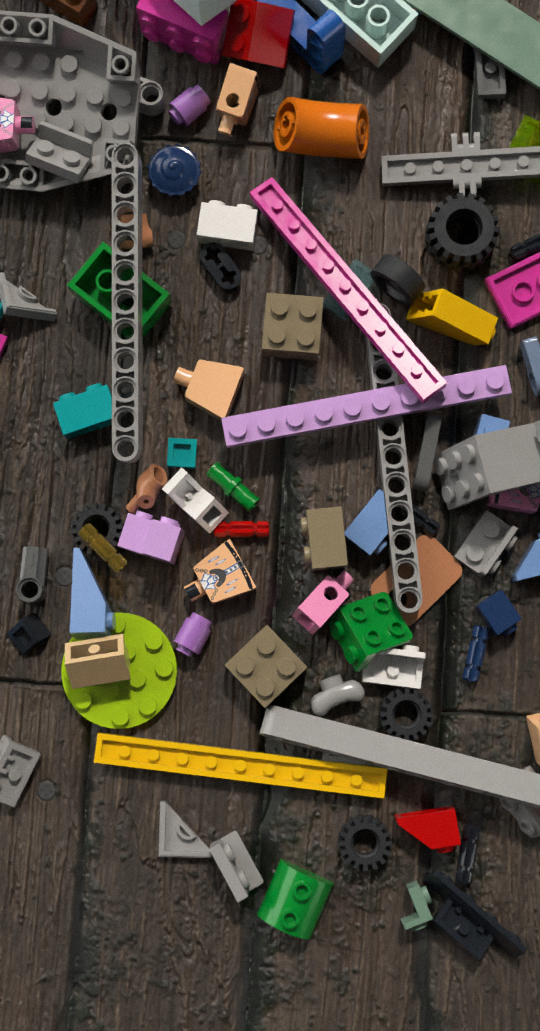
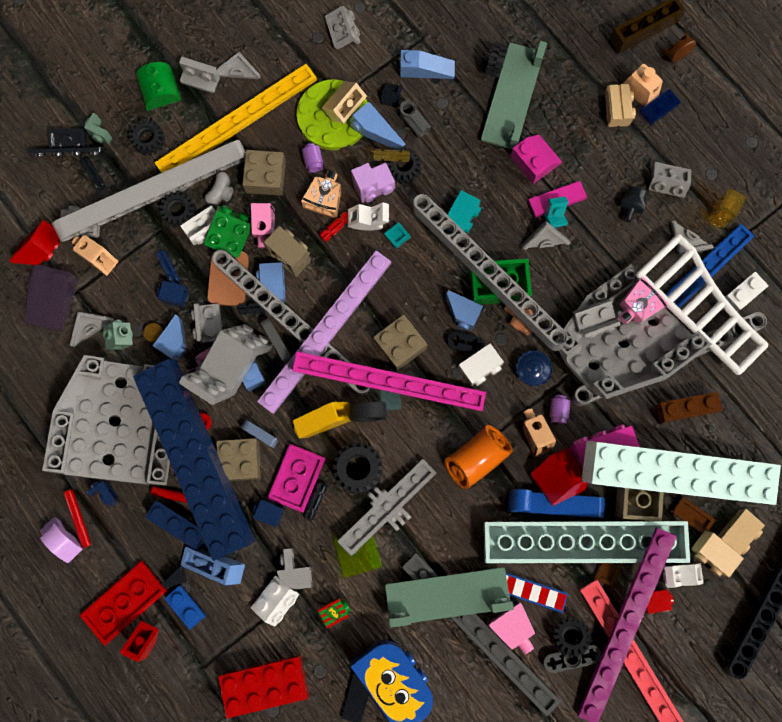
camera: 135 degrees right, 5 degrees down
(147, 488) = (397, 204): nougat piece -> none
(190, 299) = (463, 310): none -> medium blue slope
(211, 386) = (412, 278): light nougat torso -> none
(233, 487) = (358, 241): green pin -> none
(432, 827) = (121, 169): red slope -> none

